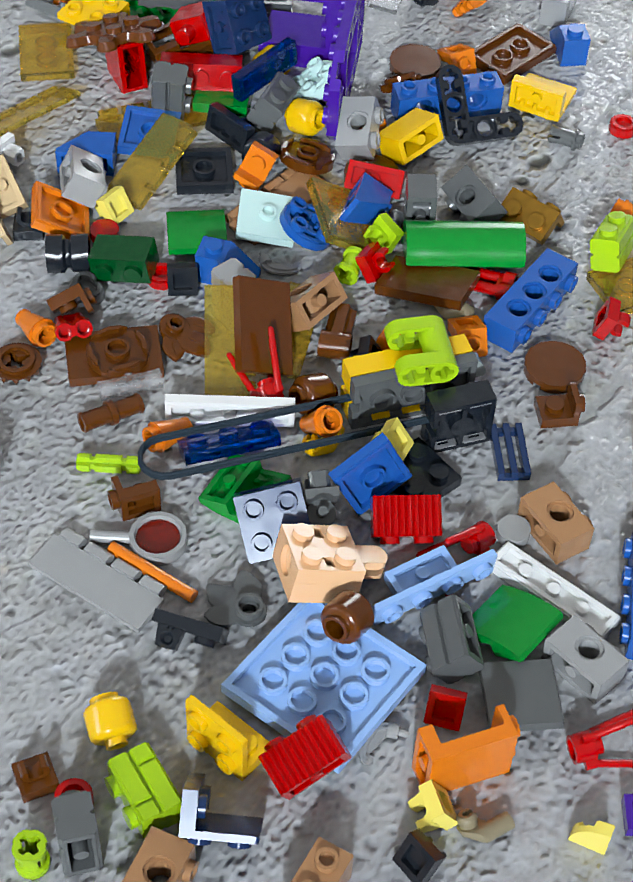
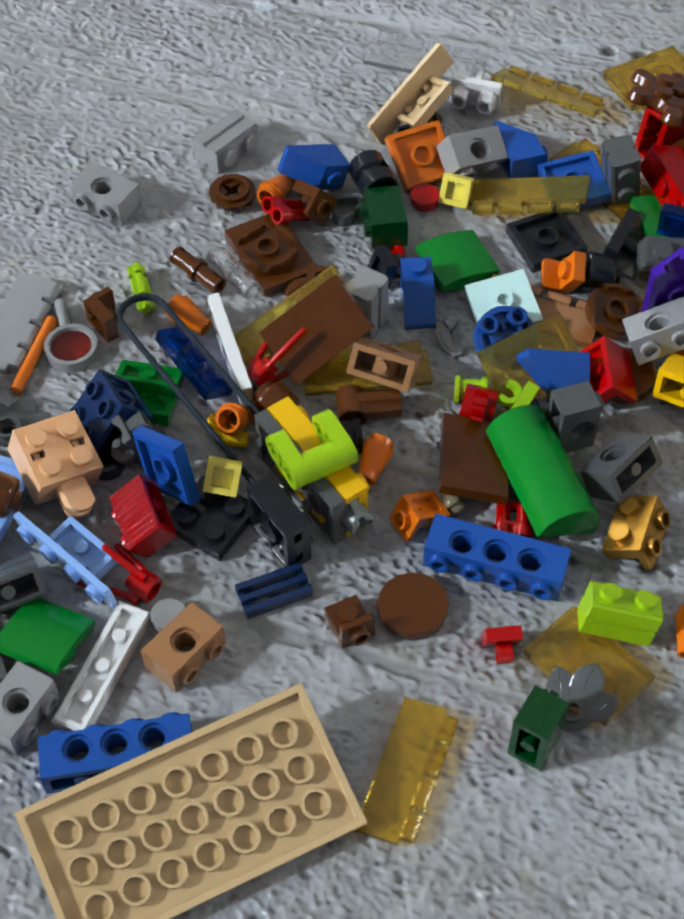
camera: 75 degrees right, 5 degrees up
(33, 284) = (315, 164): none -> blue slope

